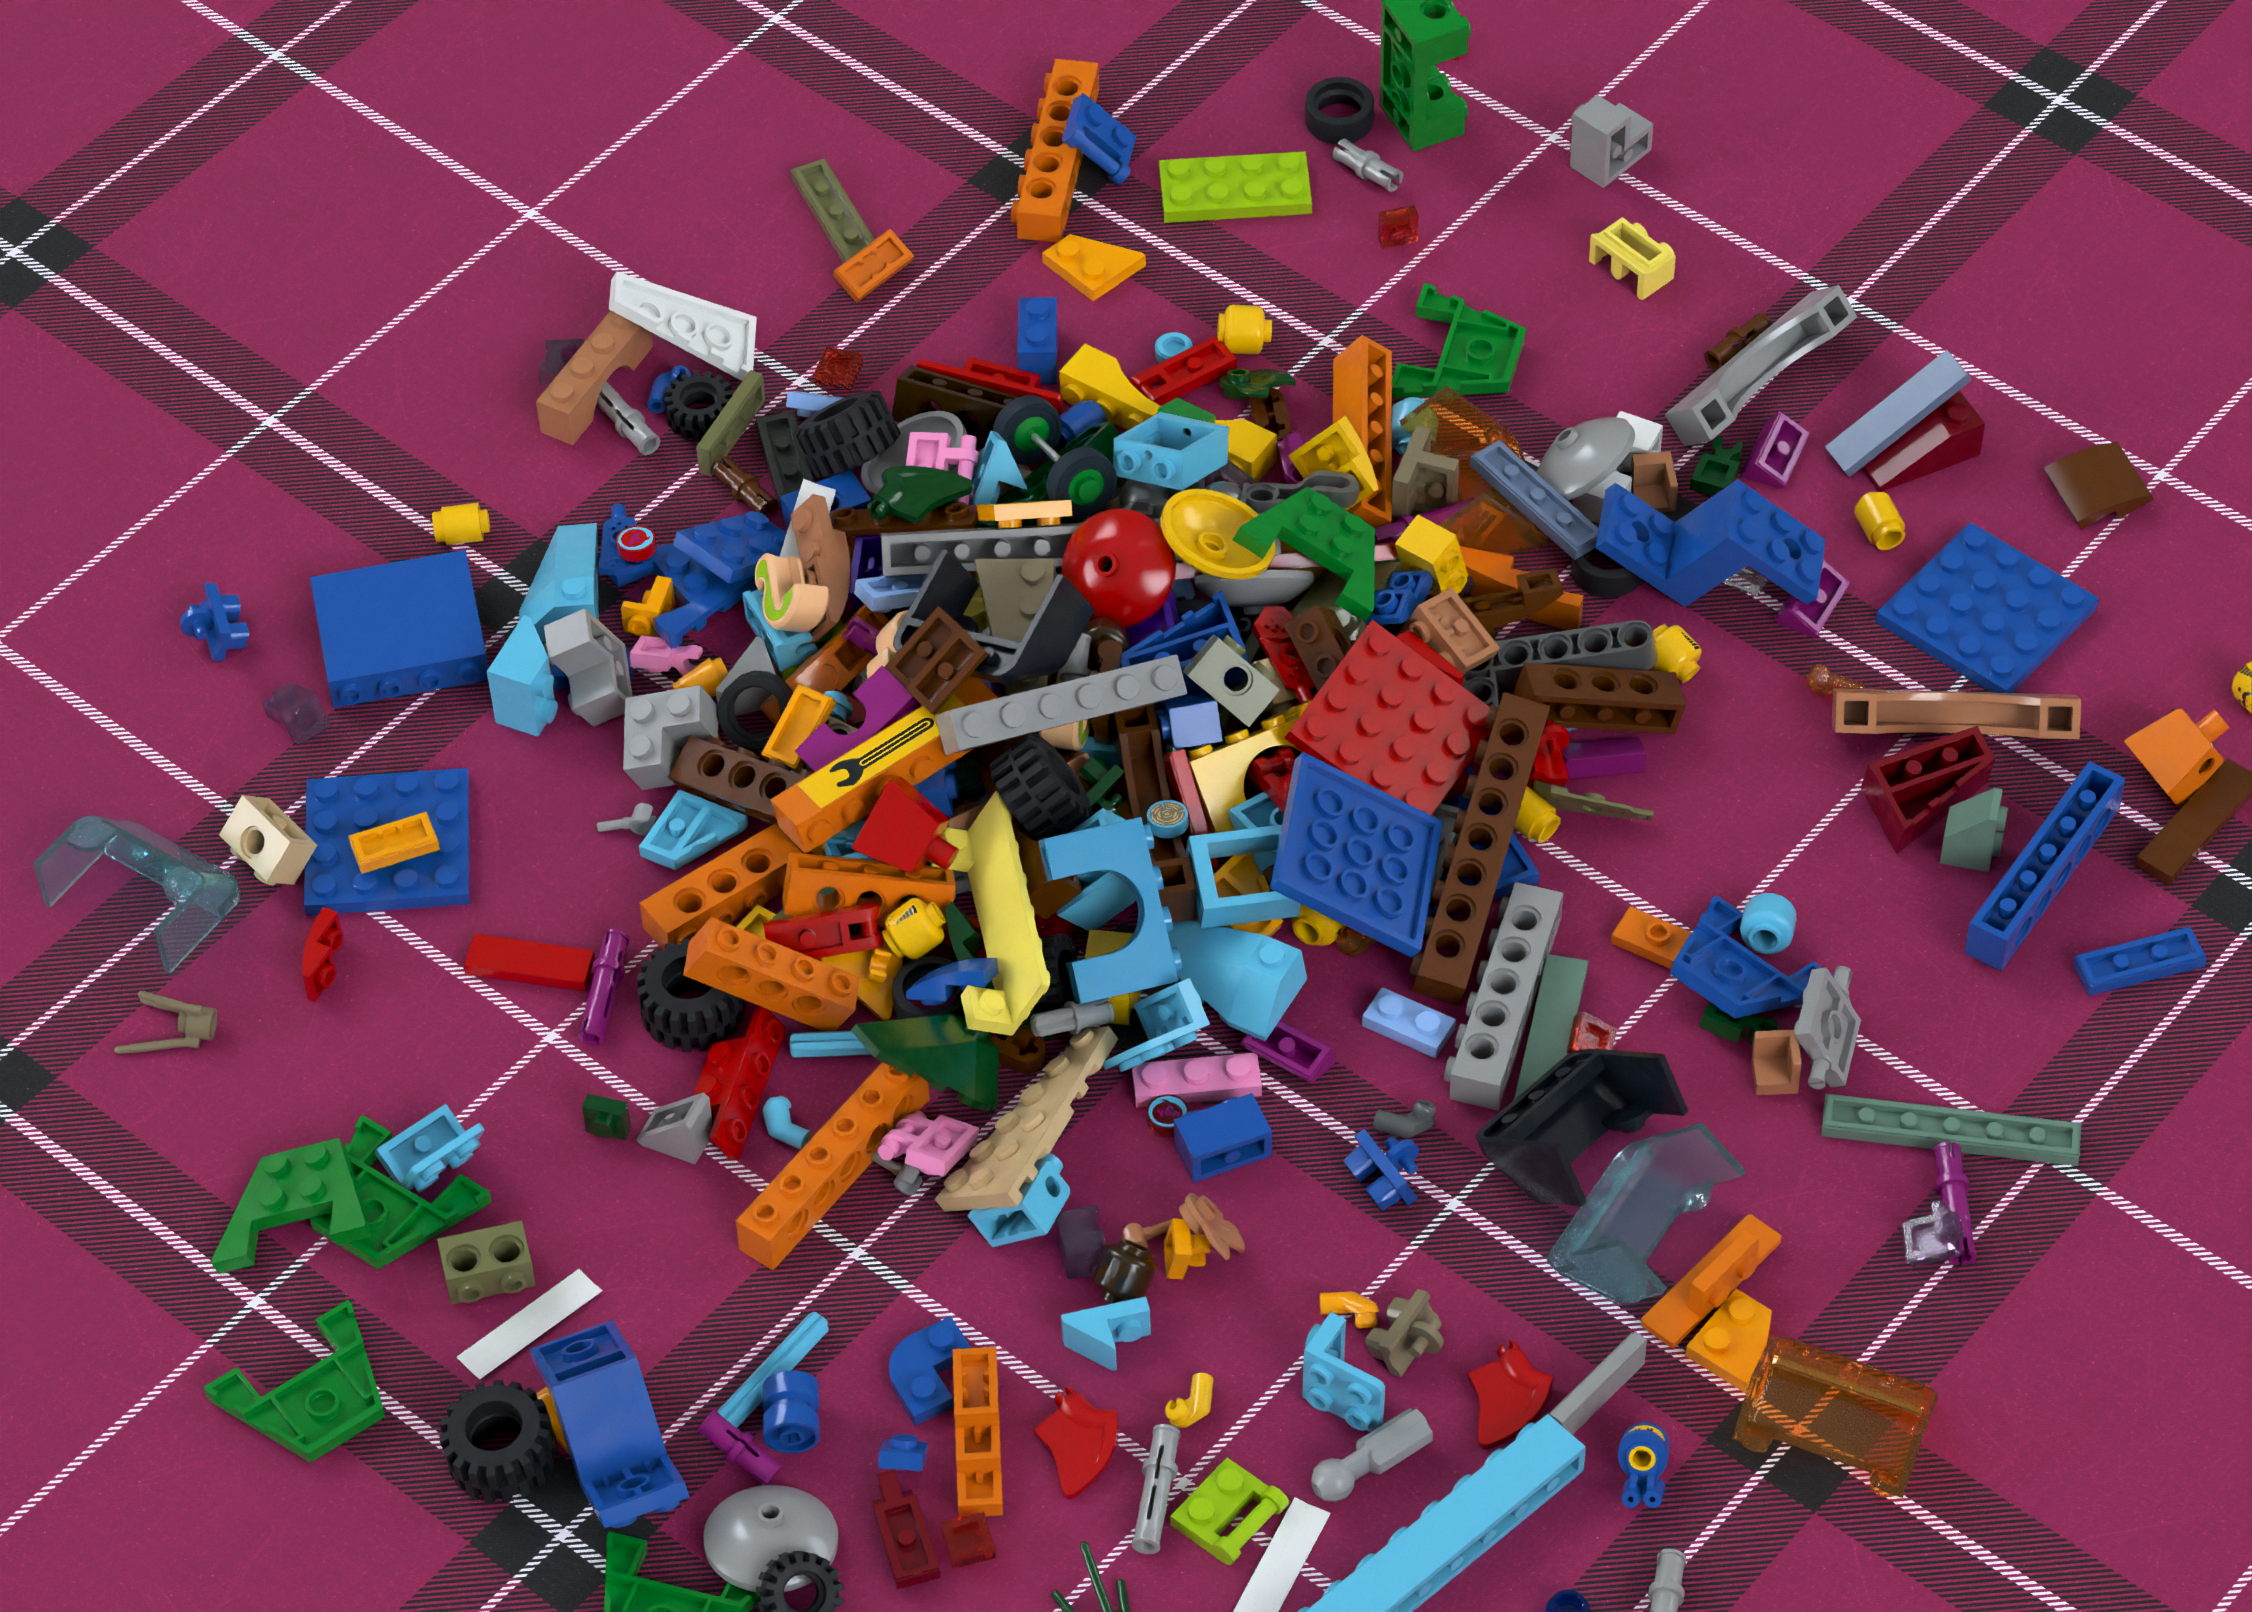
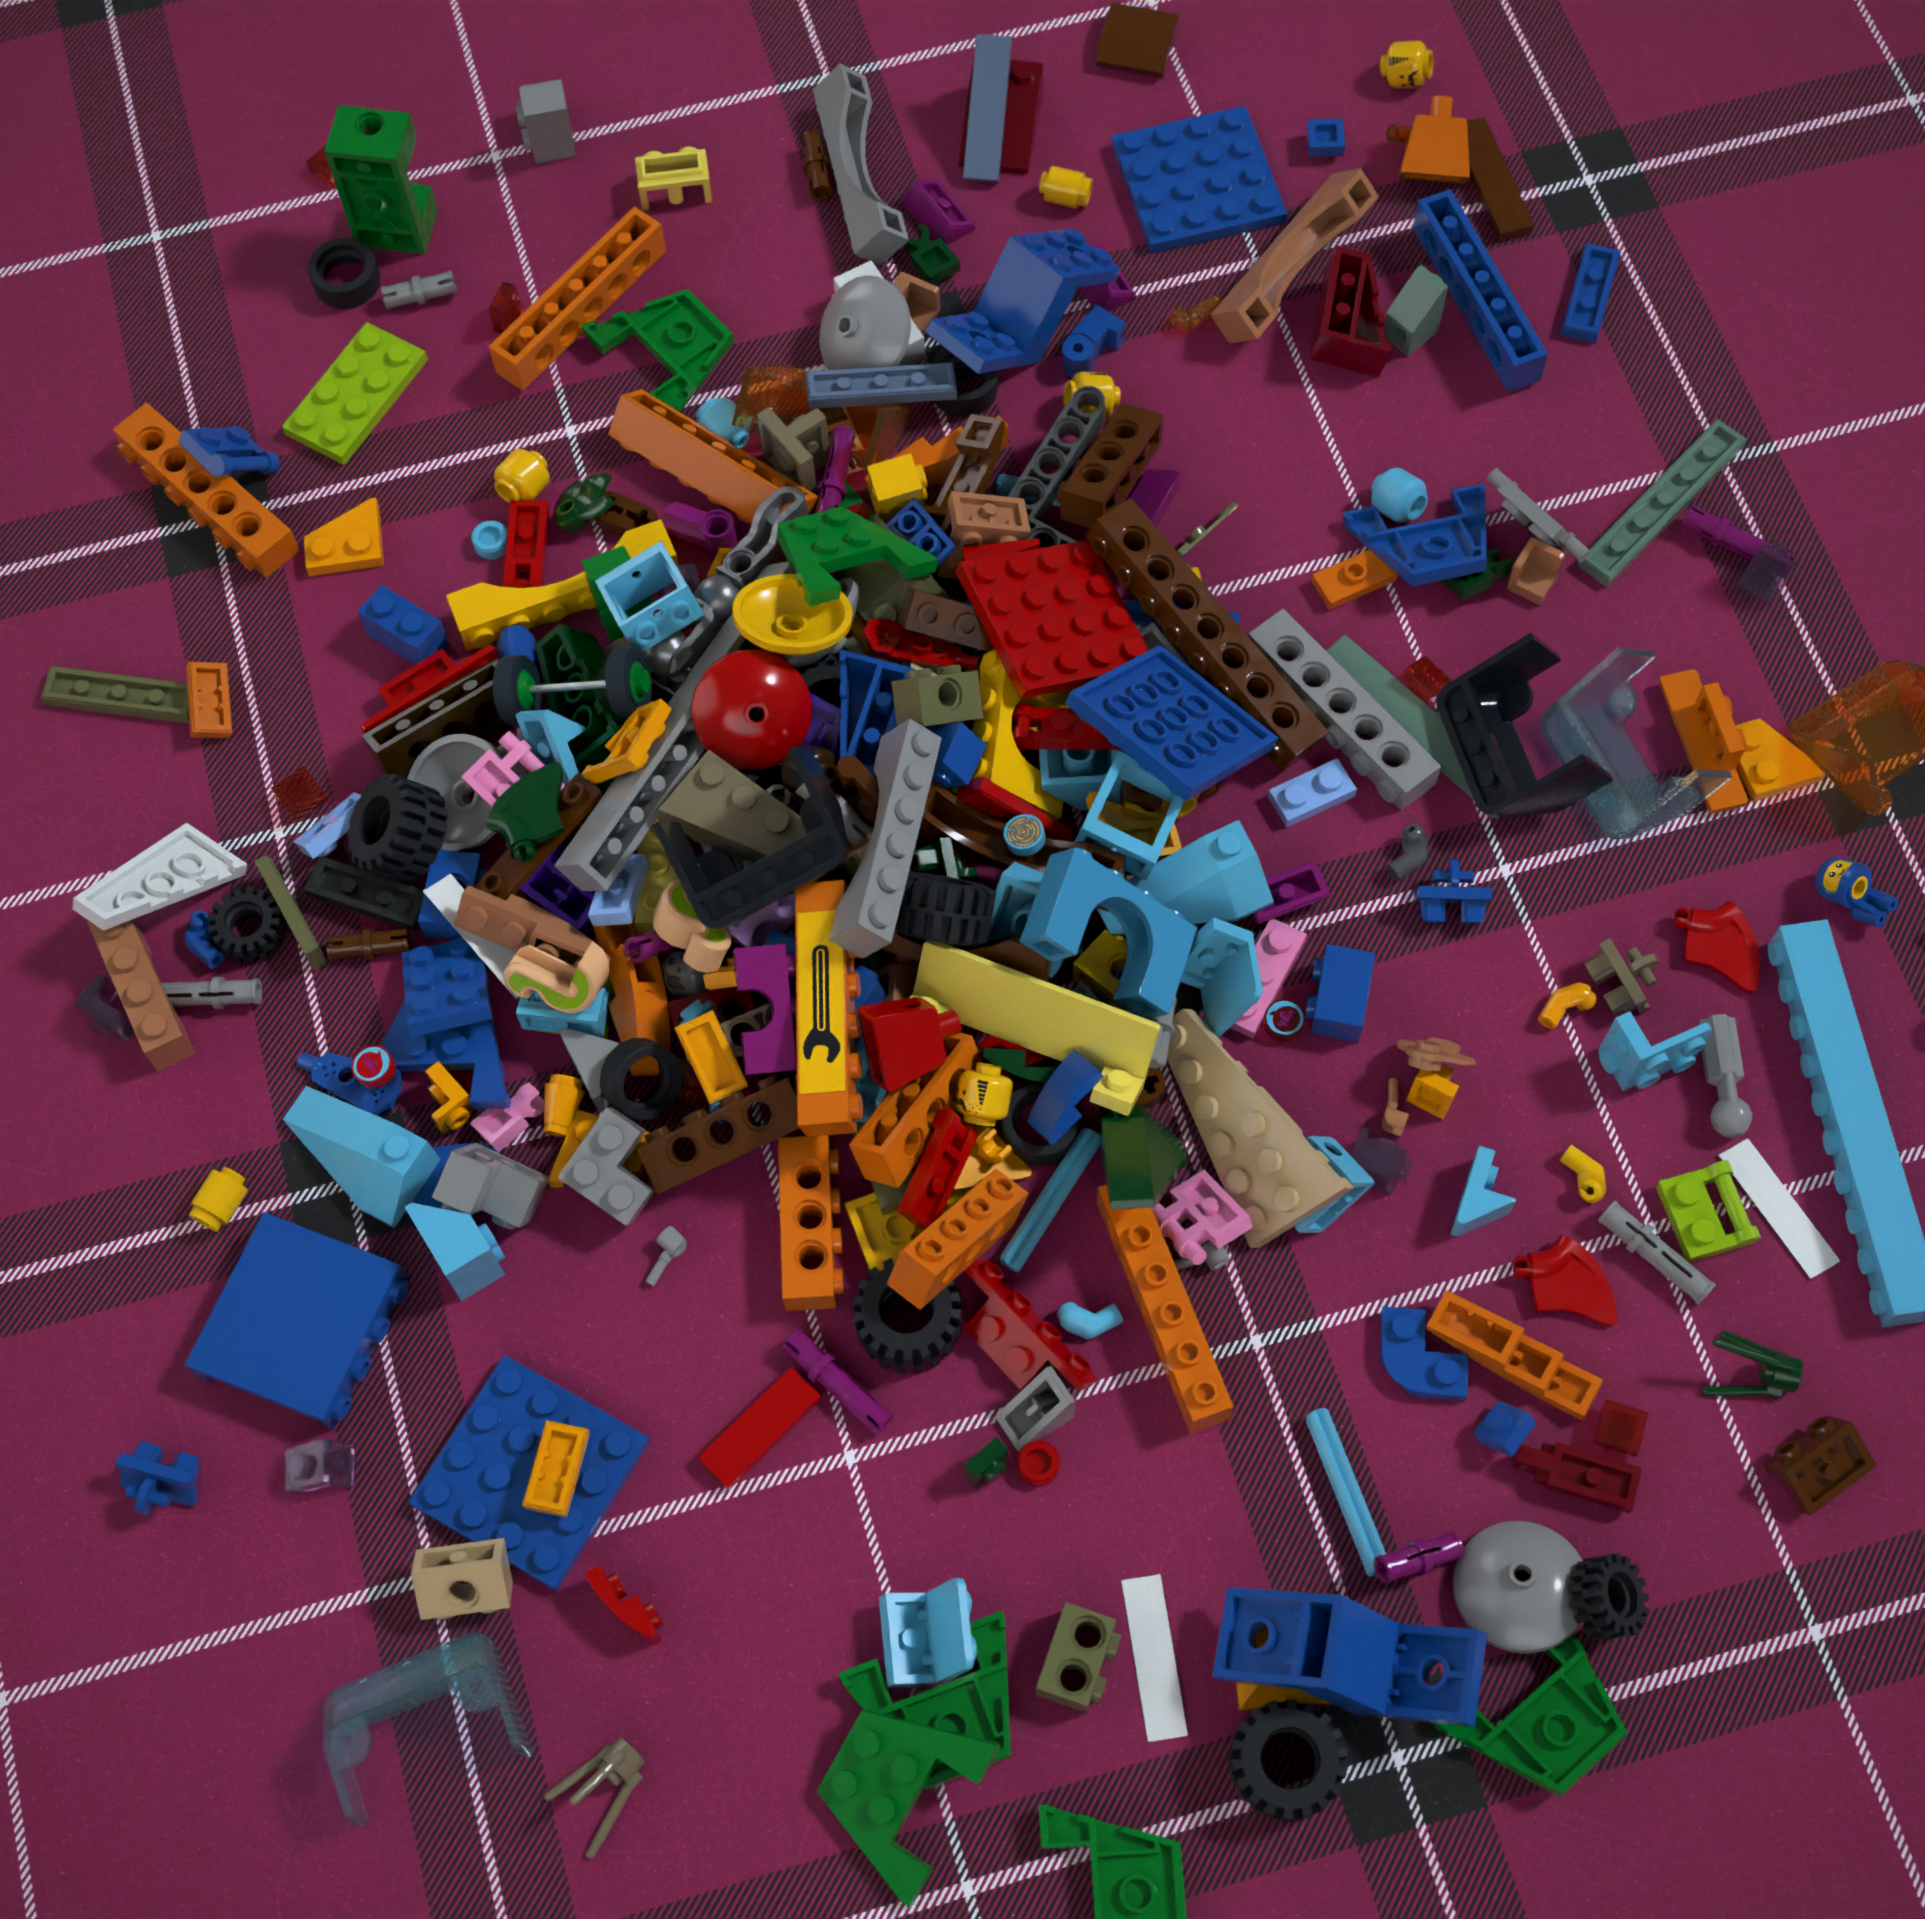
camera: 55 degrees left, 15 degrees up
(635, 1158) = (1038, 1463): none -> red tile
(690, 829) = (717, 1210): medium azure wing -> none
(790, 1412) = (1407, 1492): blue wheel -> none
(936, 660) = (774, 902): reddish brown slope -> none
(1124, 1271) = (1434, 1146): dark brown head -> none
(1338, 451) = (742, 488): yellow slope -> none
(1447, 261) = (578, 298): none -> orange brick
(1601, 1383) = (1760, 876): light grey tile -> none
(1729, 624) = (1091, 339): none -> blue leg
(2119, 673) = (1325, 137): none -> blue plate

